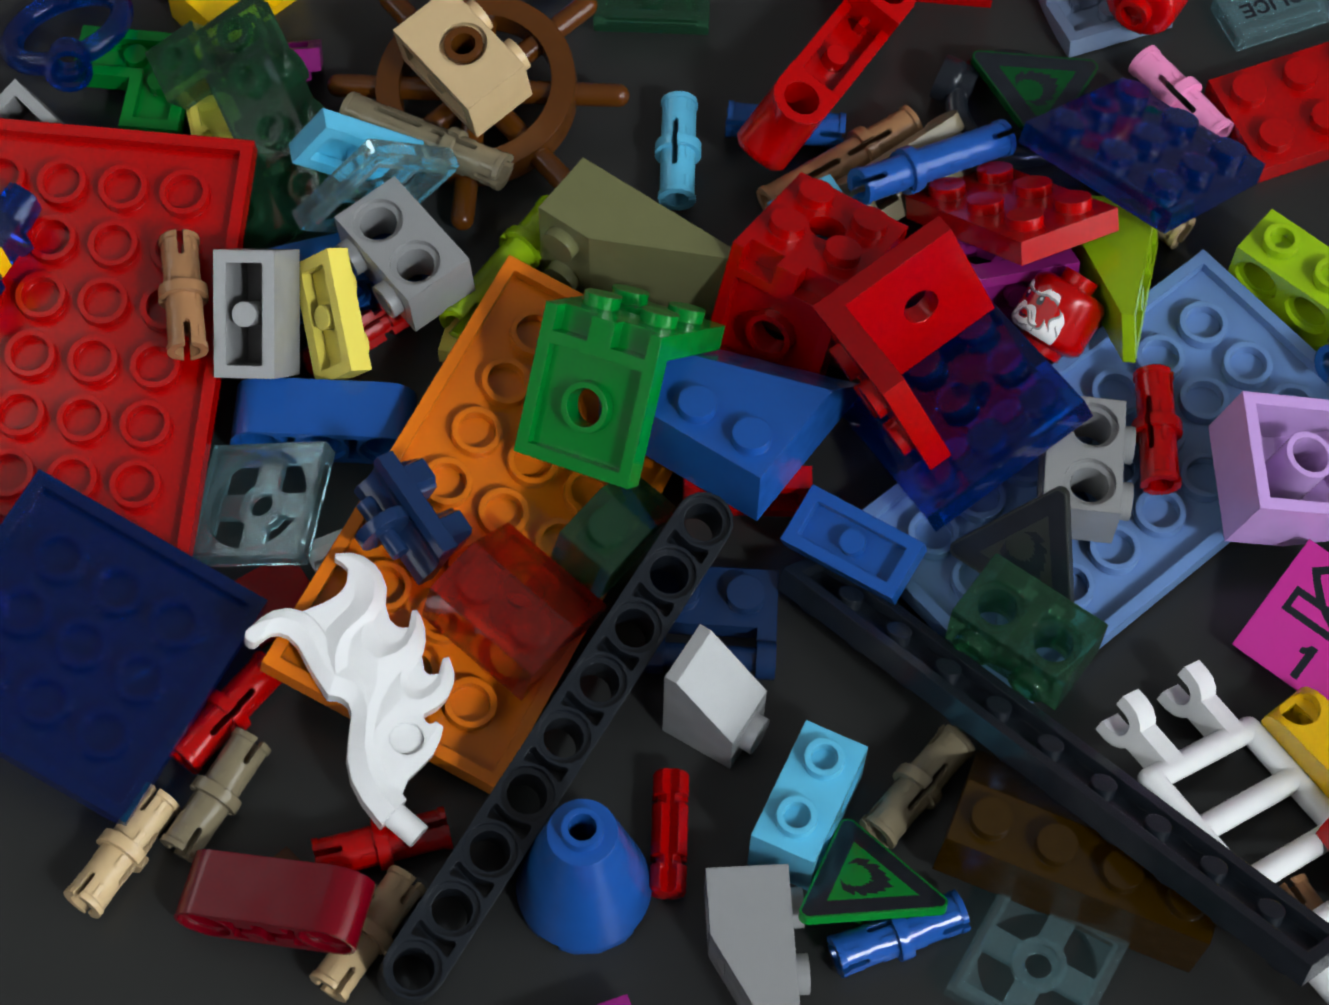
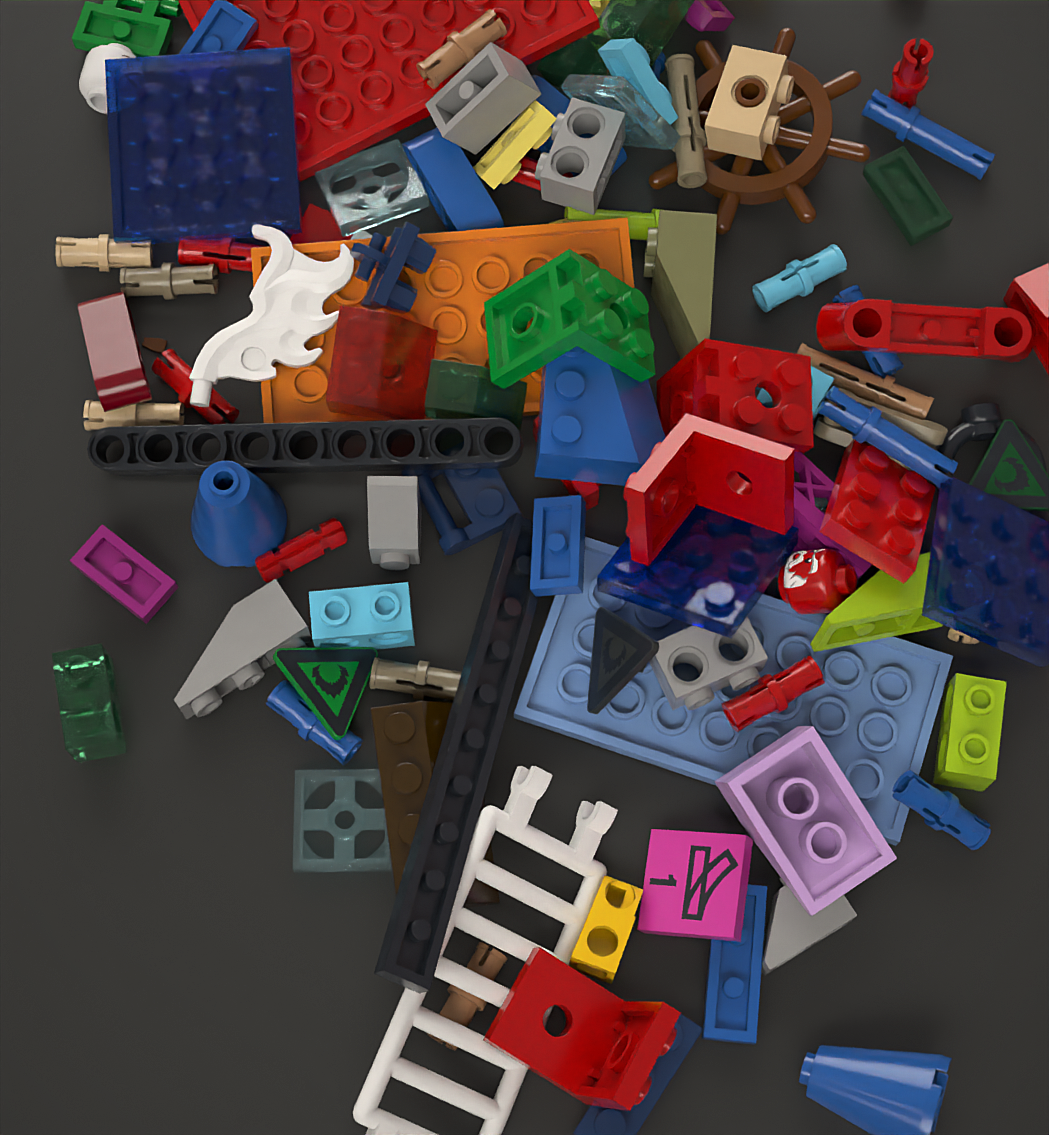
camera: 60 degrees right, 10 degrees up
(1036, 620) = (565, 685): clear green brick -> none

